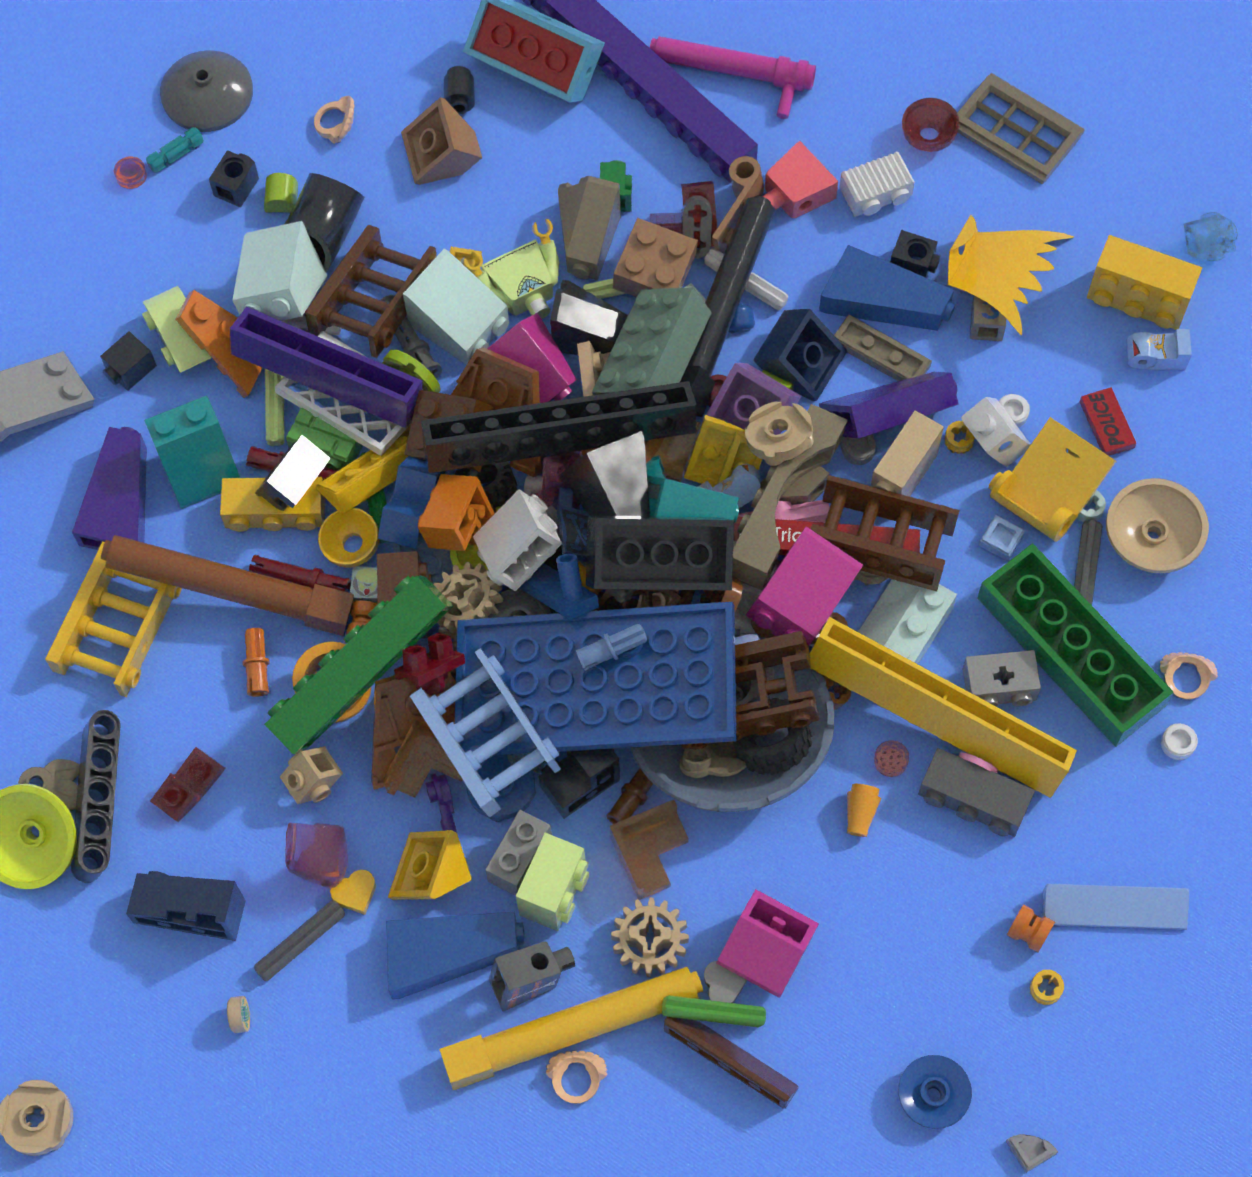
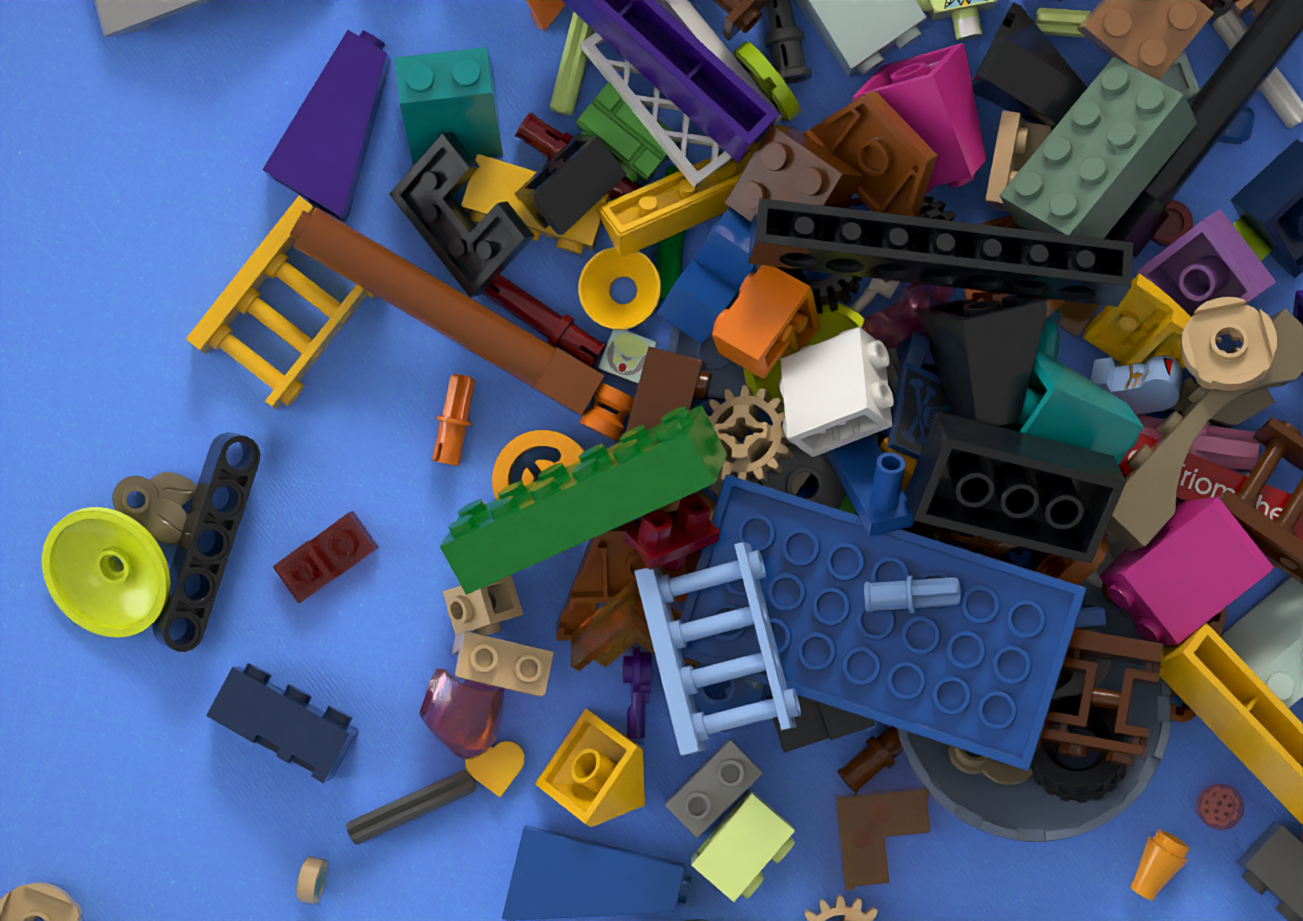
camera: 20 degrees right, 20 degrees up
(233, 542) = (468, 251): none -> black plate
(336, 806) = (502, 663): none -> tan bracket

